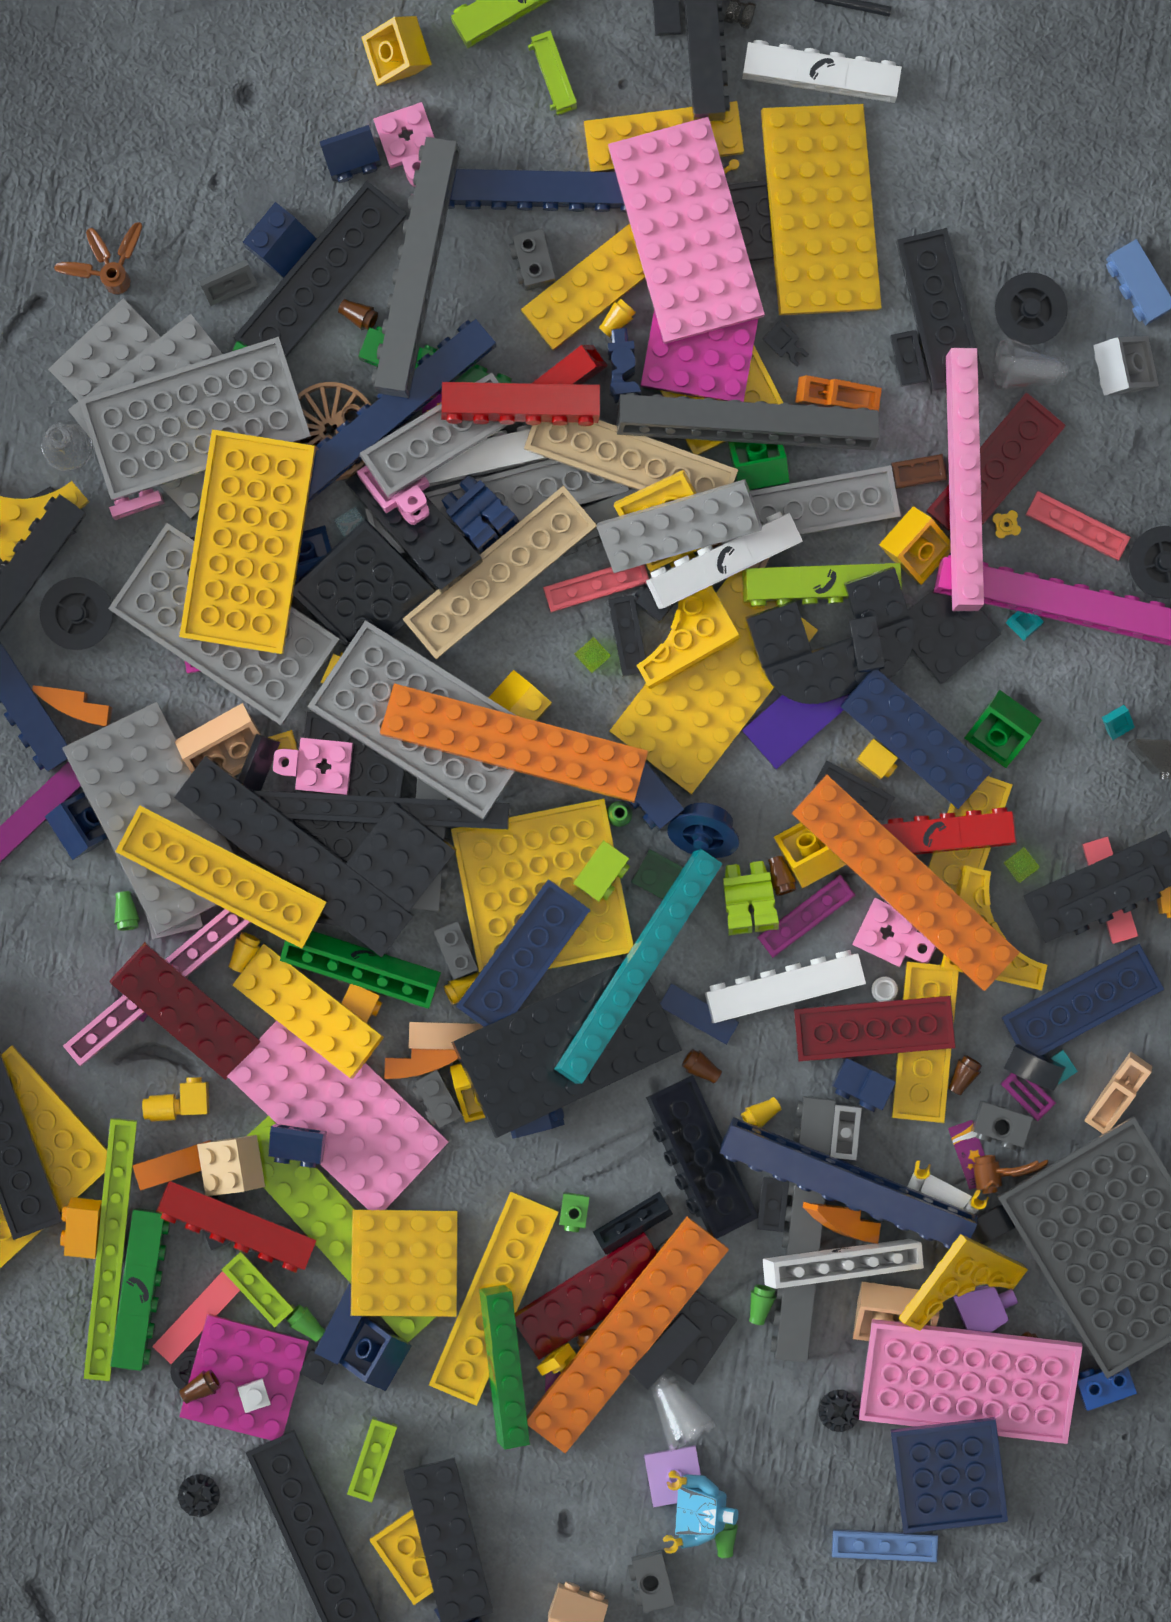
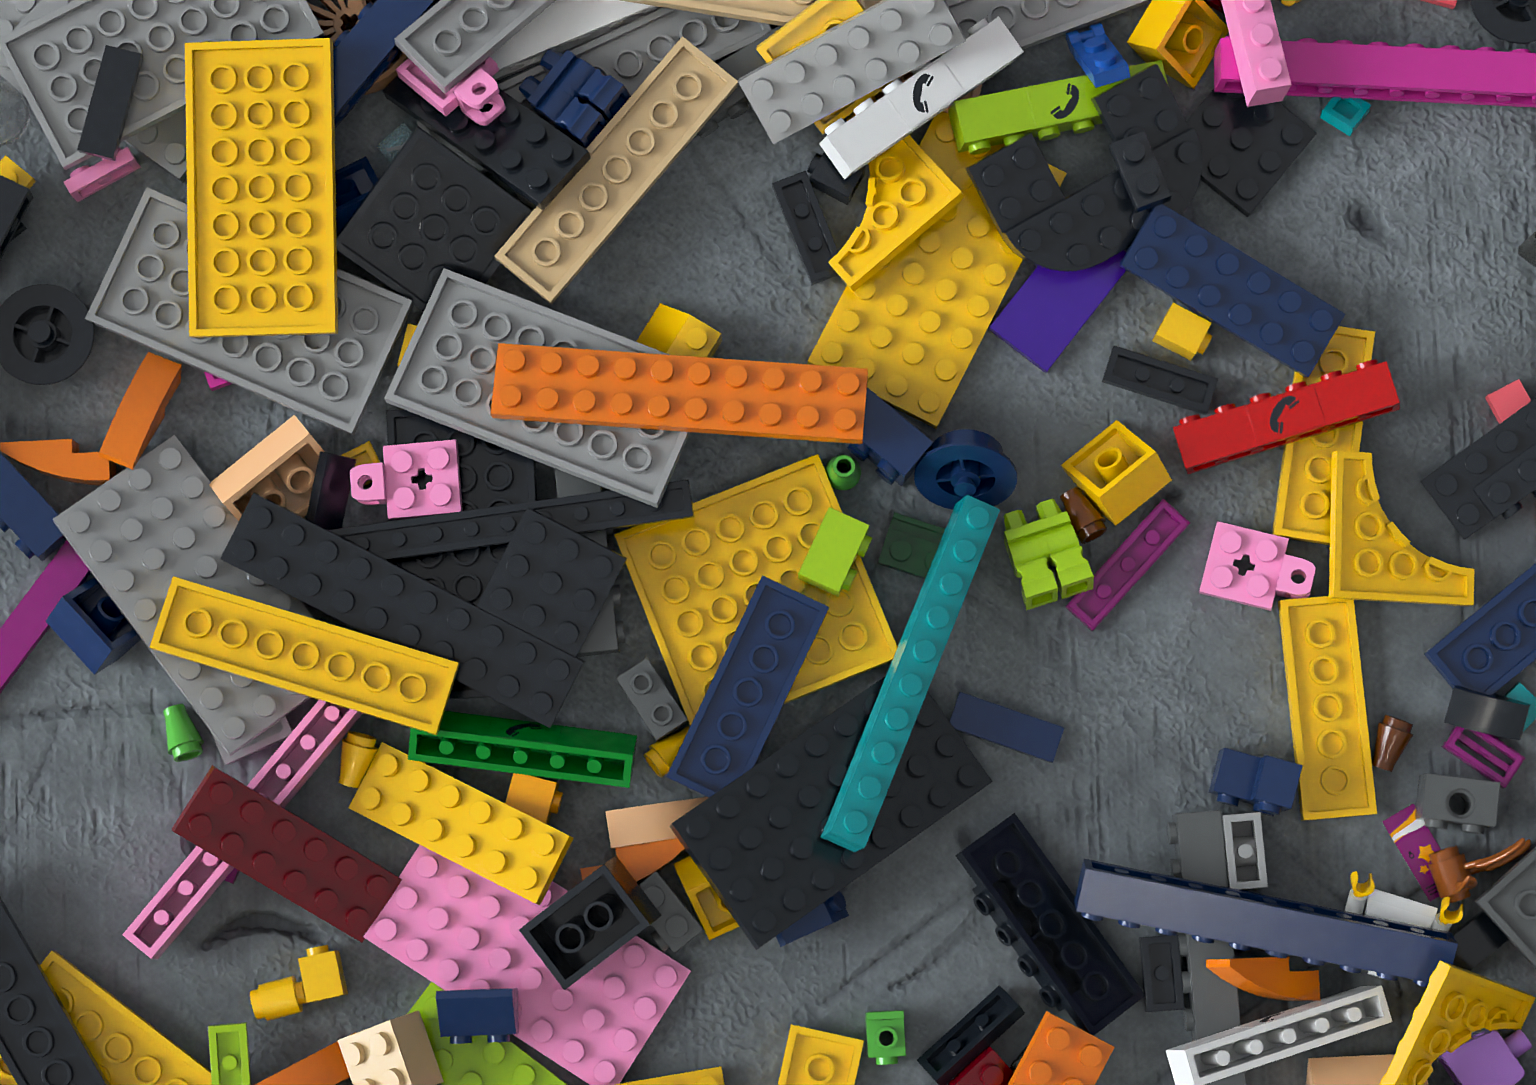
camera: 10 degrees left, 5 degrees down
(136, 680) = (141, 410): none -> orange slope
(152, 460) = (110, 103): none -> black tile
(385, 1097) = (590, 922): none -> black brick
(592, 655) = (765, 263): clear neon green plate -> none
(593, 586) = (750, 170): coral tile -> none
(700, 1066) = (1022, 798): reddish brown cone -> none
(762, 1112) = (1121, 846): yellow cone -> none
(785, 987) = (1118, 667): white brick -> none
(855, 552) = (1097, 56): none -> blue plate
(874, 1028) = (1255, 699): dark red plate -> none
(884, 989) = (1256, 645): white plate -> none
(905, 882) = (1258, 488): orange plate -> none
(1003, 729) = (1346, 259): green slope -> none
(1021, 865) = (1409, 439): clear neon green plate -> none
(1118, 722) = (1501, 221): teal plate -> none

